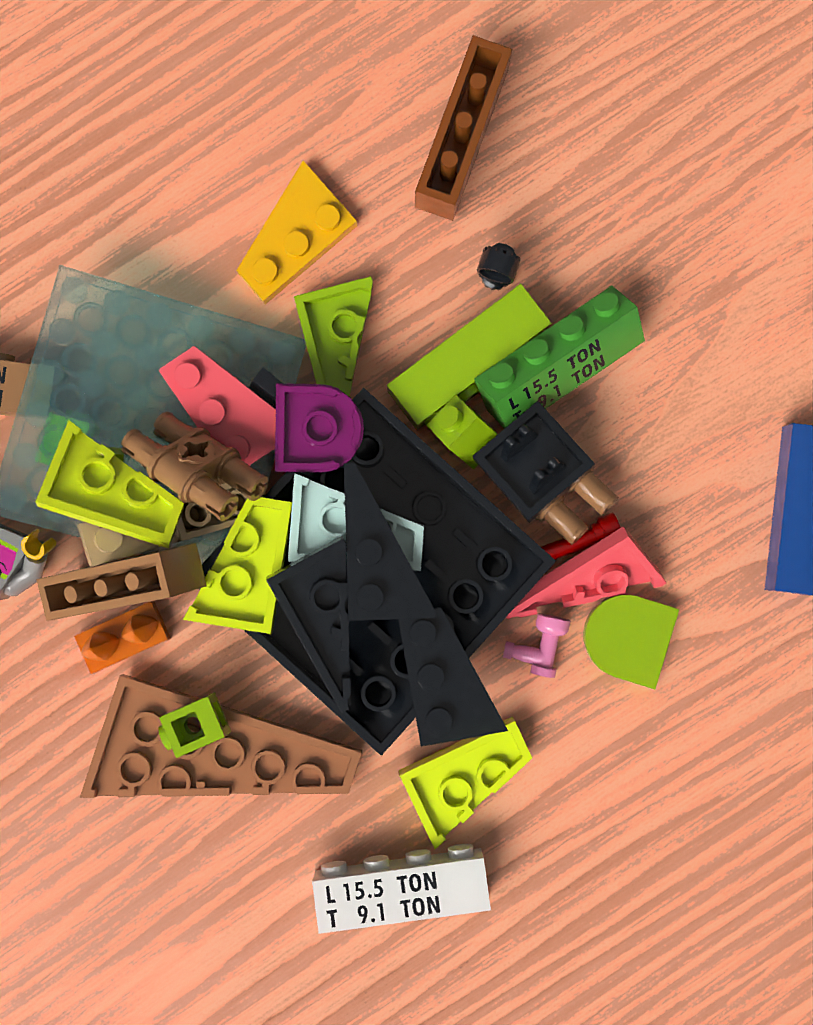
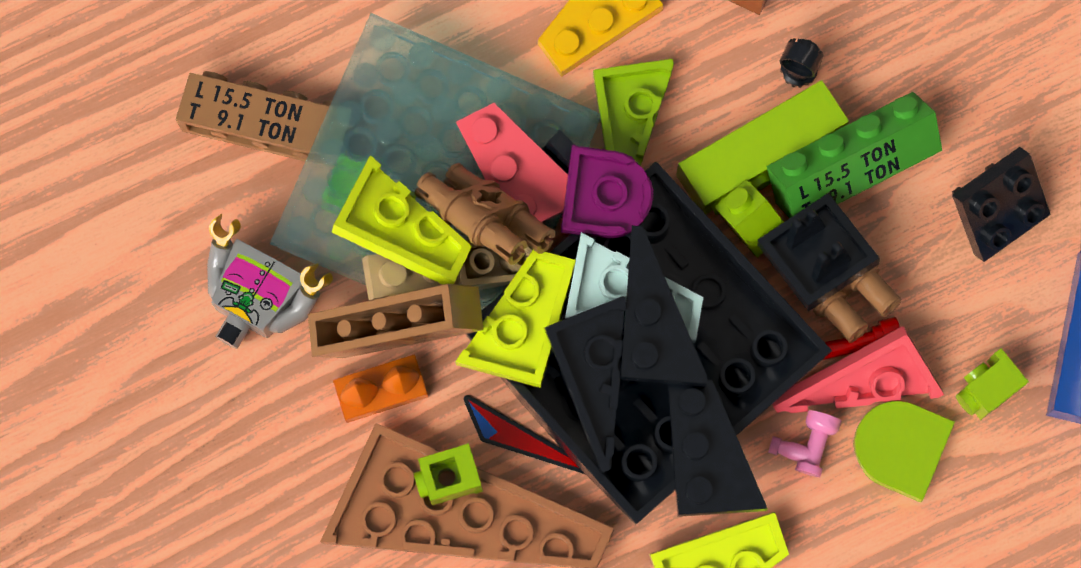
camera: 10 degrees right, 10 degrees down
(250, 666) = (505, 433): none -> sticker
(707, 389) = (1001, 204): none -> black plate
(711, 571) = (990, 386): none -> lime brick

